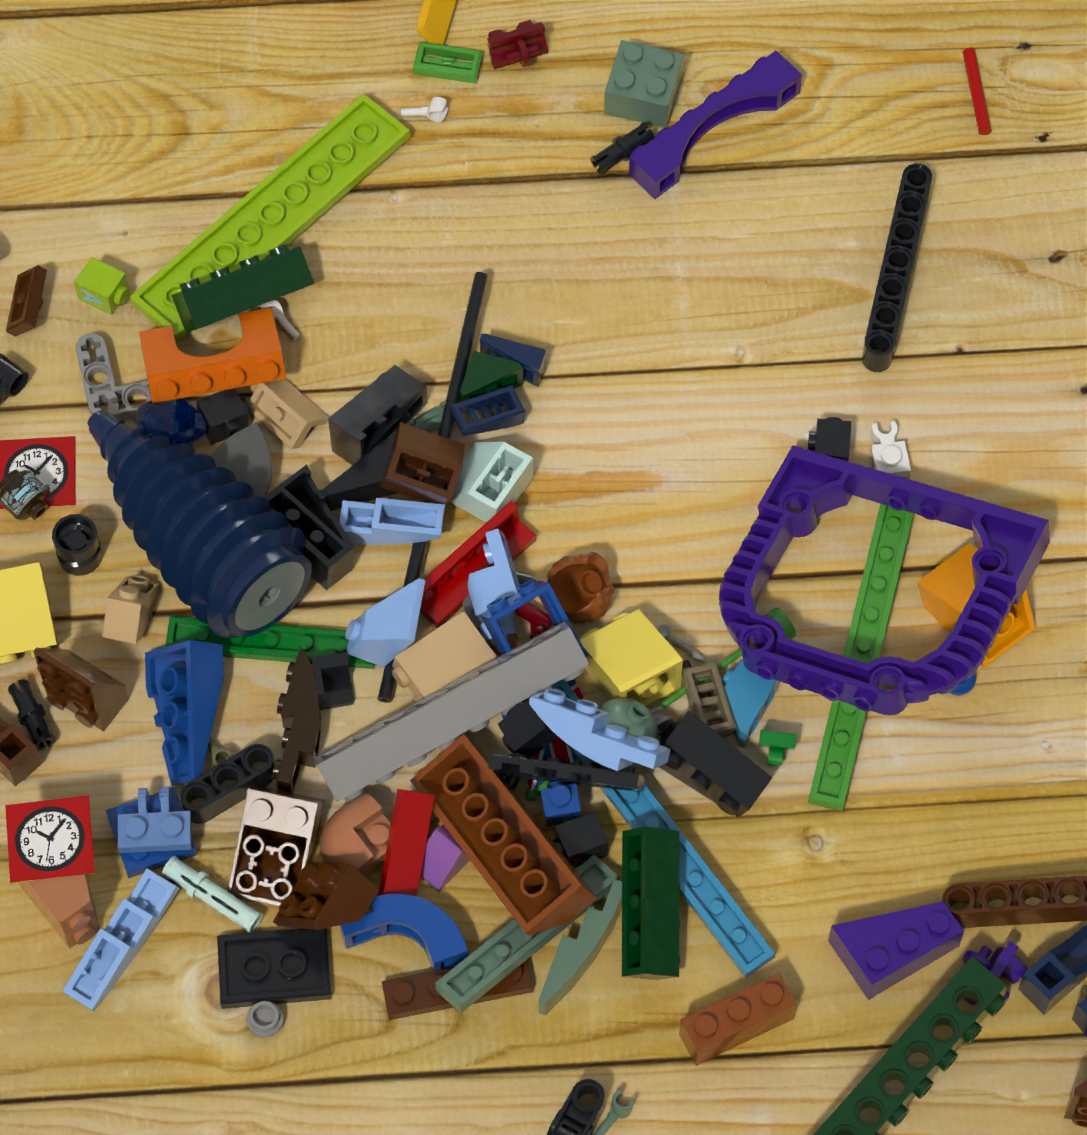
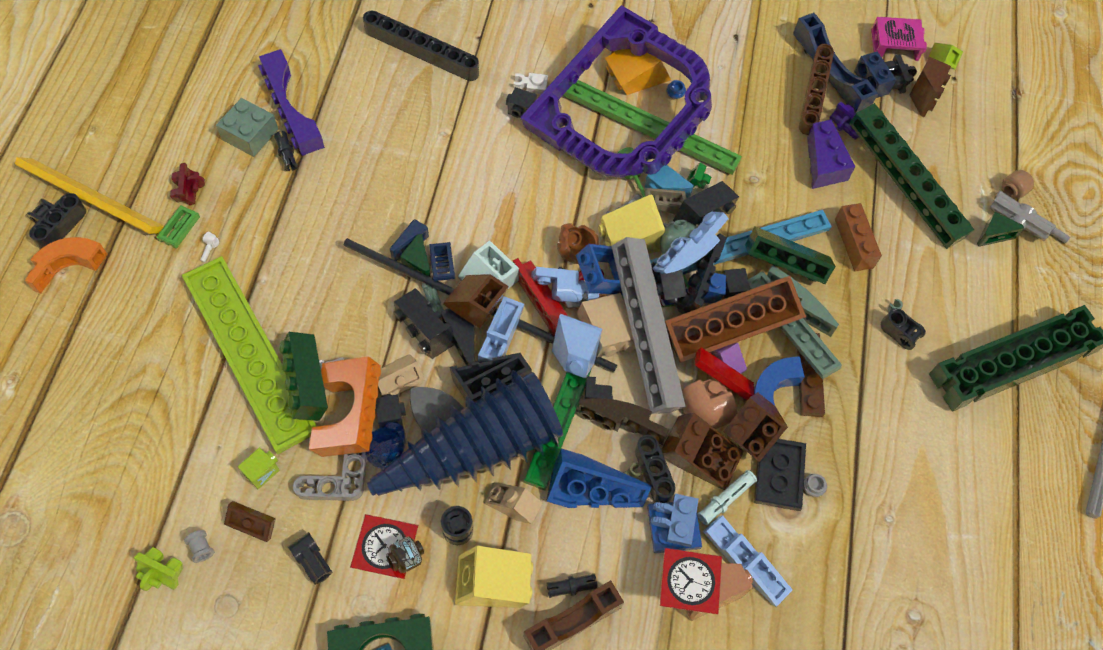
camera: 80 degrees left, 0 degrees up
(80, 687) = (568, 542): reddish brown slope -> none

